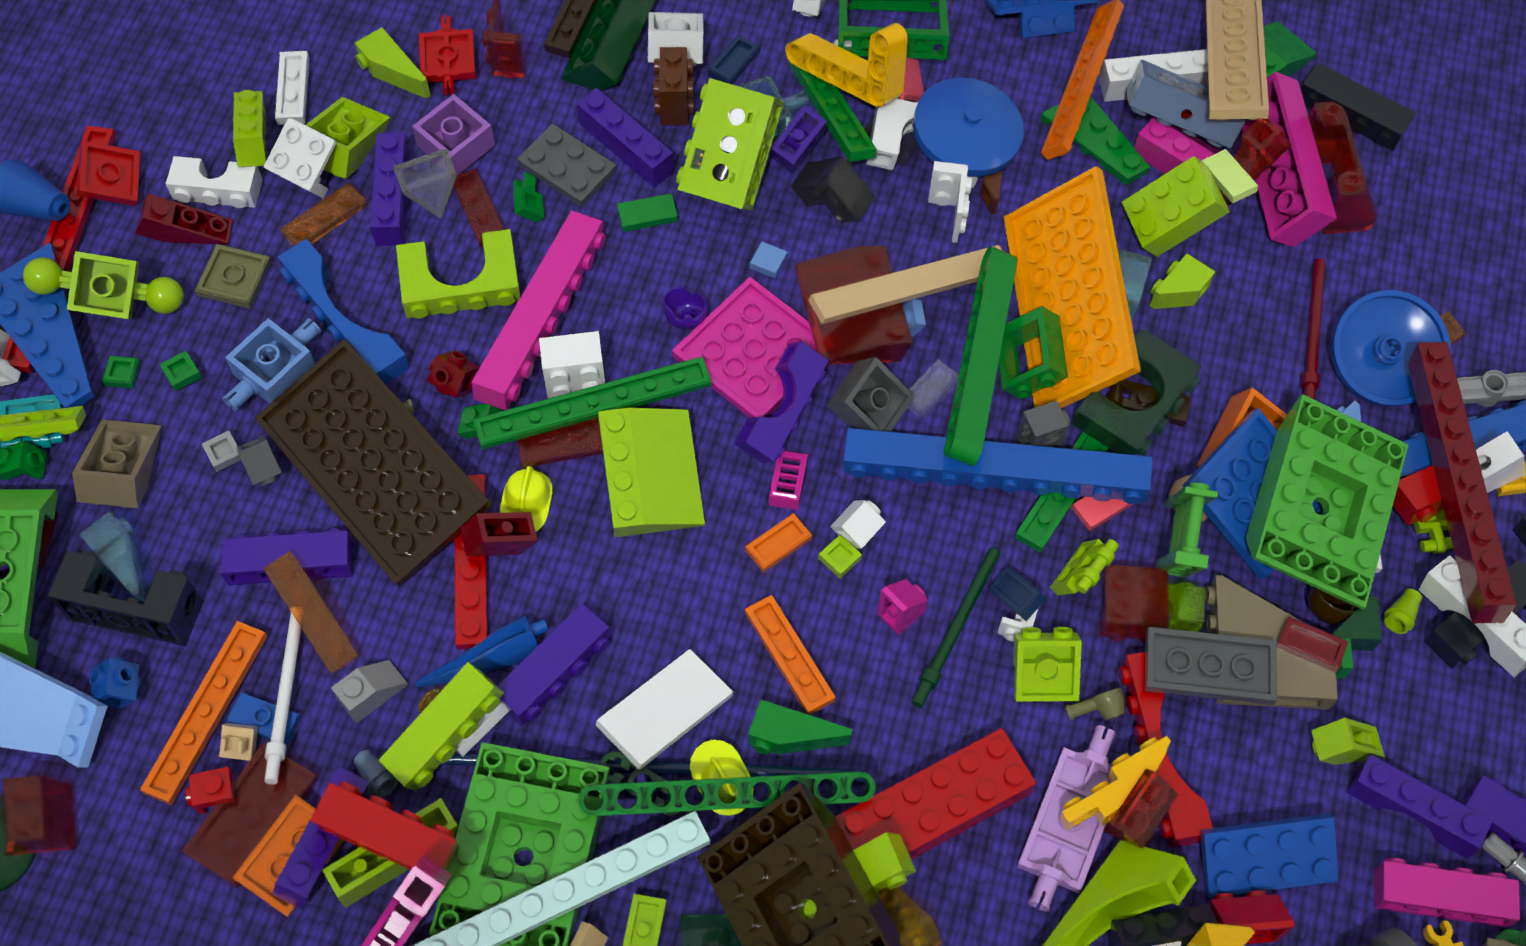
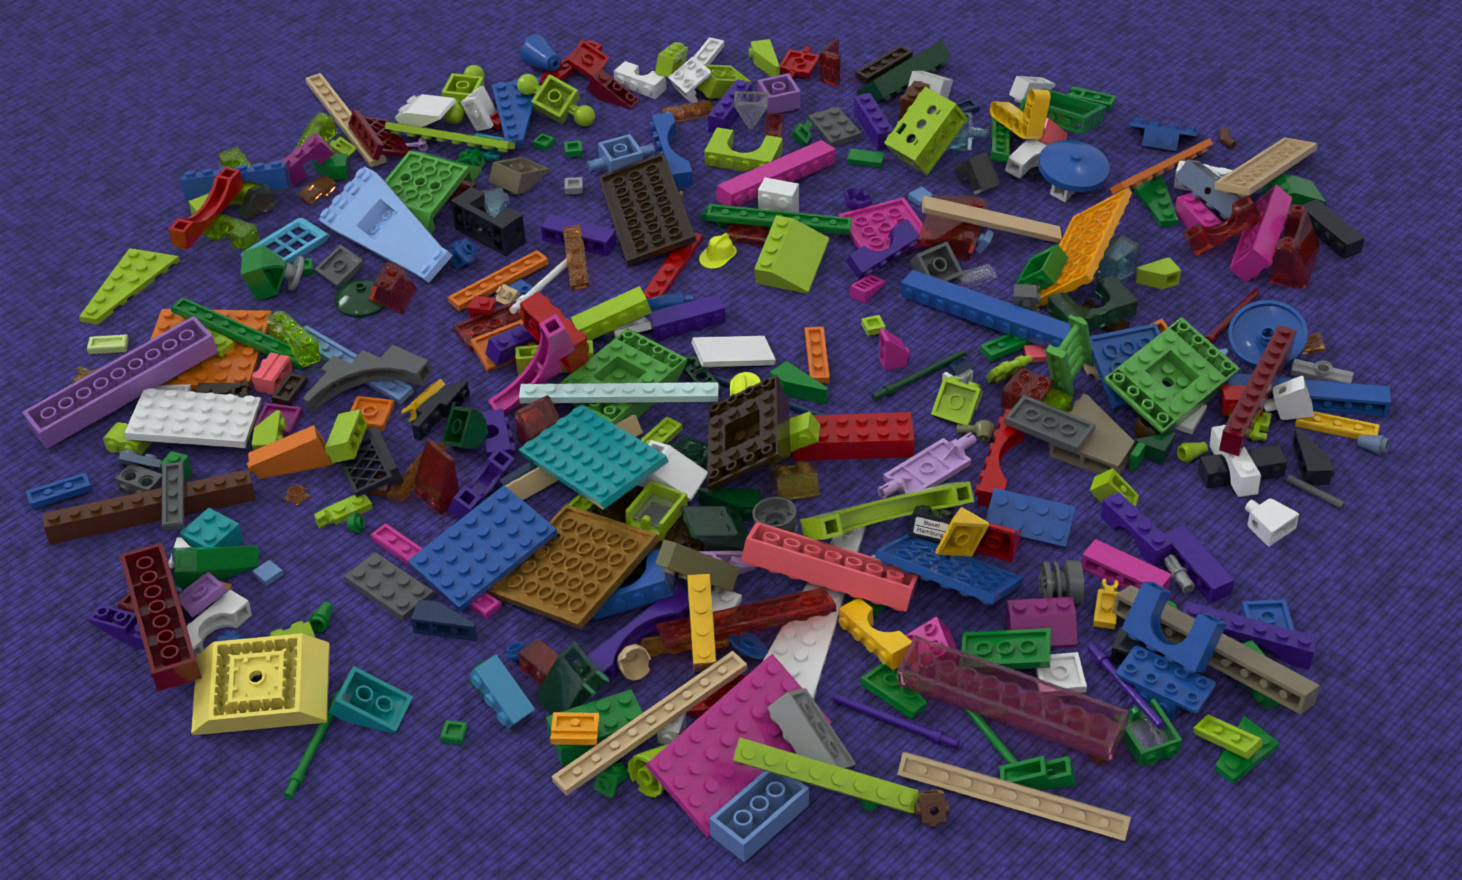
camera: 30 degrees right, 20 degrees down
(233, 276) = (625, 121): olive tile -> none
(259, 461) = (589, 192): dark grey brick -> none
(368, 688) = (583, 296): light grey slope -> none
(452, 373) = (708, 187): dark red brick -> none
(498, 534) = (692, 253): dark red brick -> none
(710, 800) = (731, 377): green beam -> none
(778, 542) = (843, 311): orange tile -> none
(798, 139) = (971, 145): dark purple brick -> none
(859, 522) = (892, 311): white brick -> none
(951, 187) = (1044, 193): white bracket -> none
(980, 357) = (1008, 258): green beam -> none
(991, 191) = (1073, 202): reddish brown slope -> none
(1124, 775) = (965, 455): yellow slope -> none
(1142, 810) = (965, 462): clear red bracket -> none
(1175, 206) = (1174, 232): lime brick -> none
(1230, 176) = (1215, 225): yellowish green tile -> none
(1312, 644) = (1118, 437): dark red tile -> none

